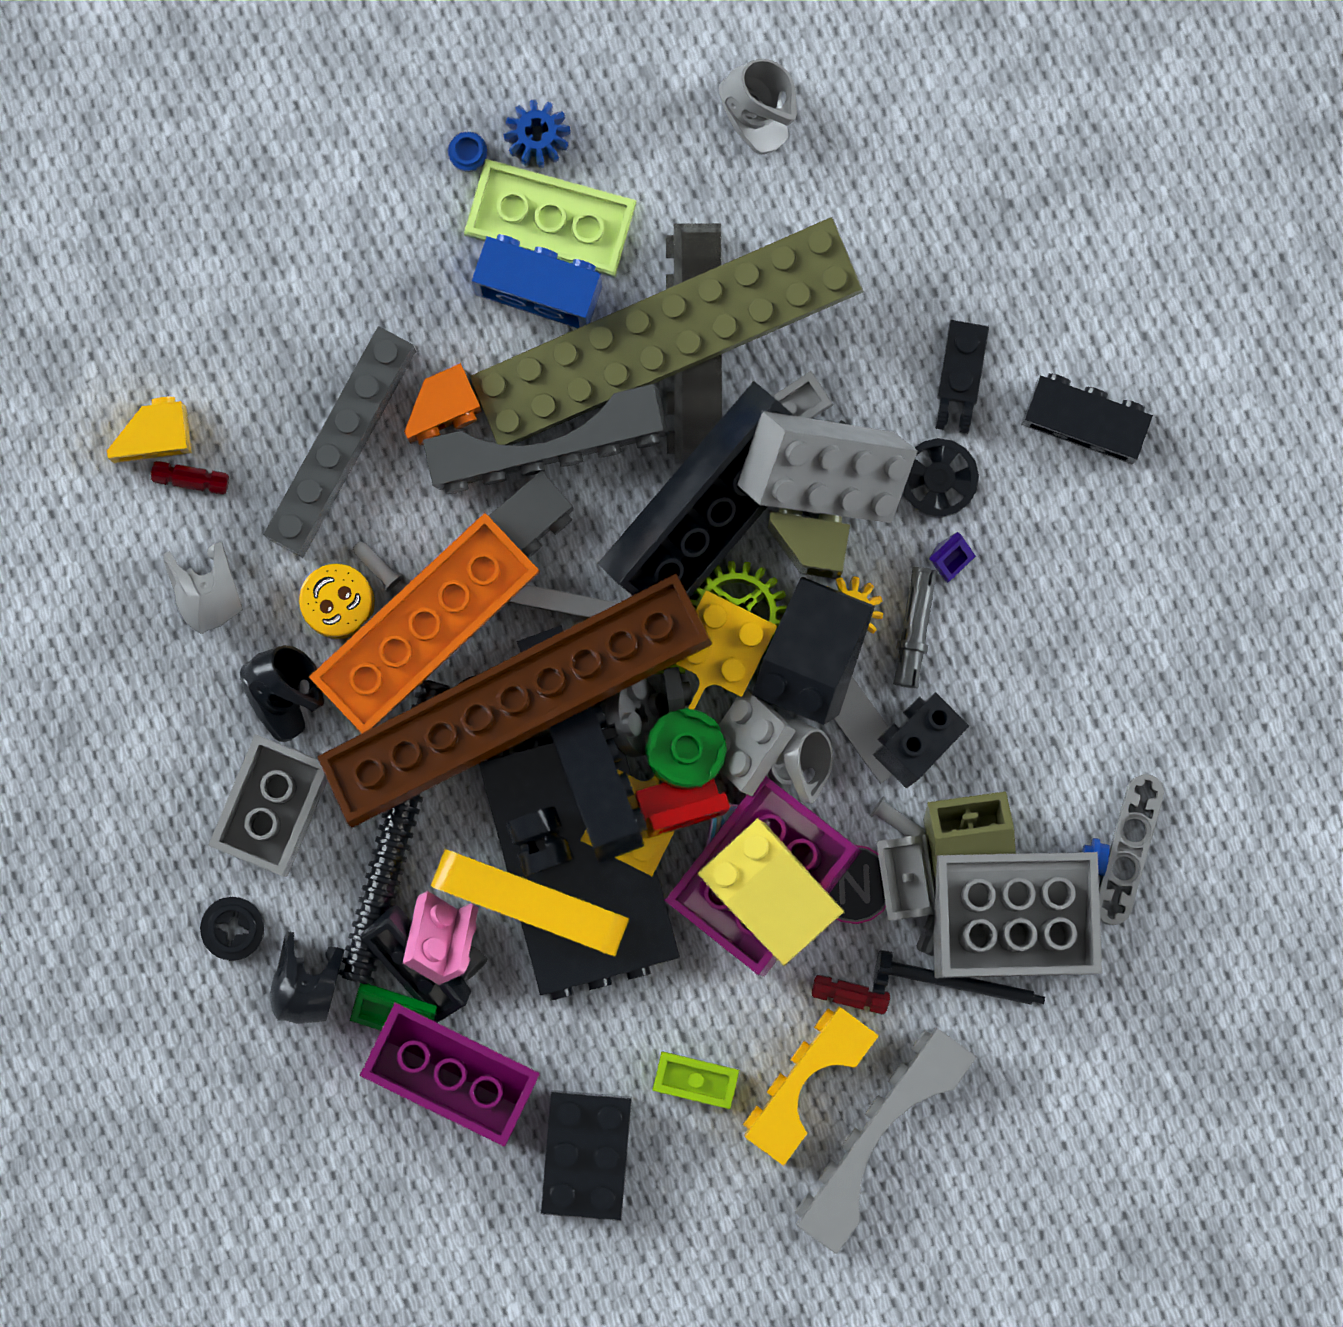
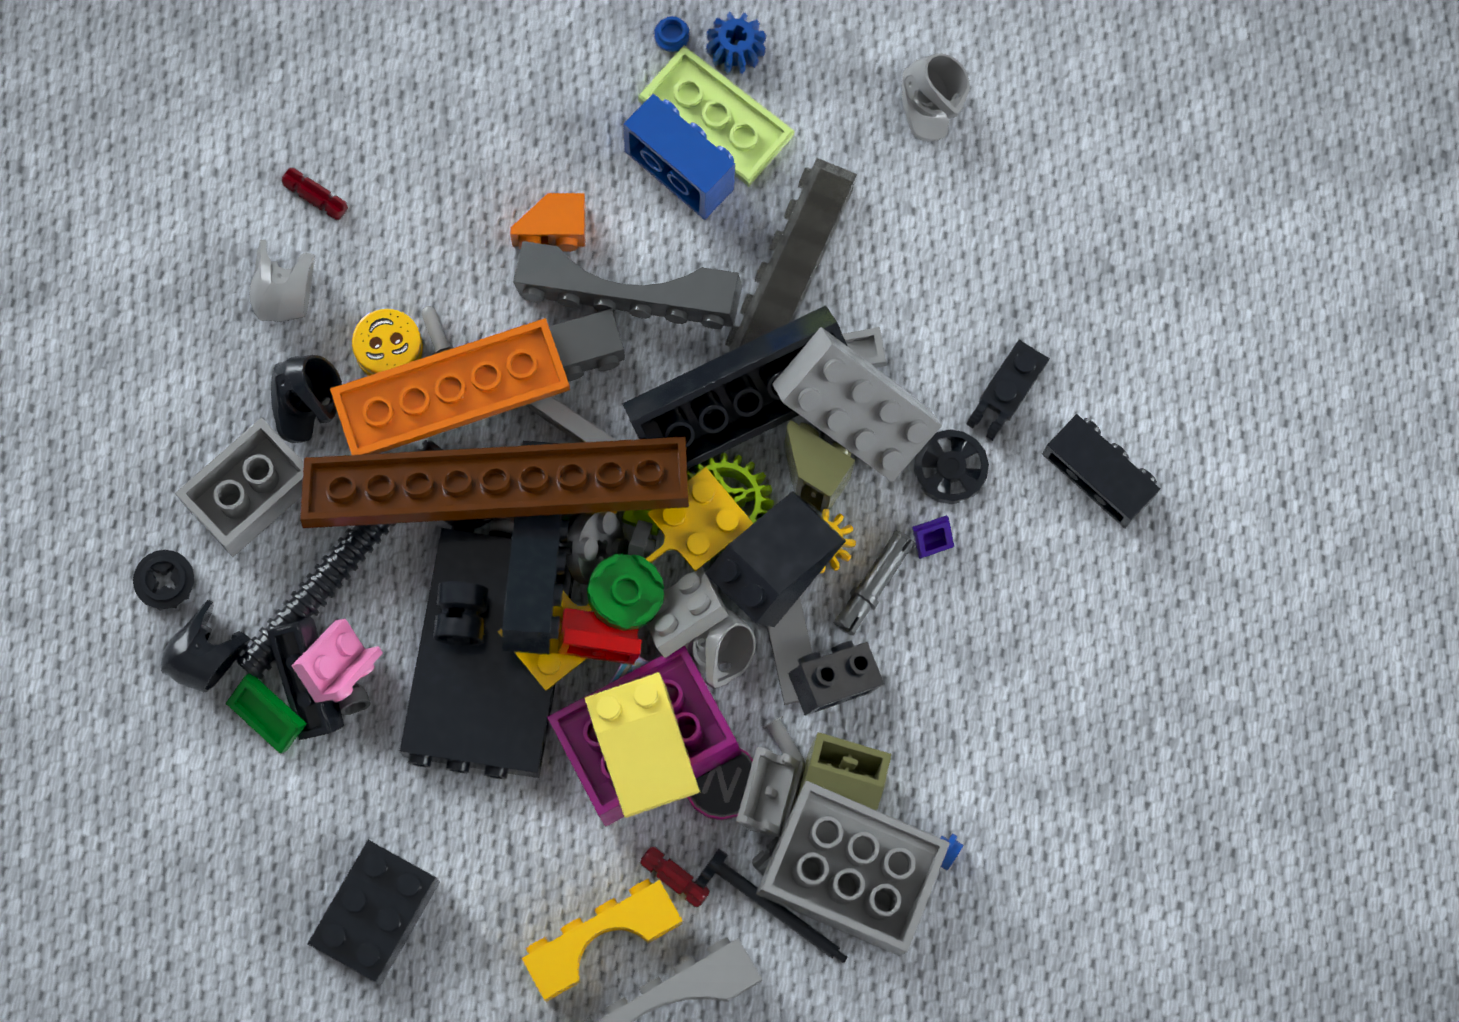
camera: 20 degrees right, 10 degrees down
(153, 433) = (300, 143): yellow slope -> none
(340, 442) = (452, 216): dark grey brick -> none
(450, 1074) = (288, 785): magenta slope -> none
(529, 902) = (428, 664): yellow beam -> none
(667, 333) = (773, 241): olive plate -> none
(695, 1080) = (502, 890): lime plate -> none
(1134, 851) = (979, 858): light grey beam -> none

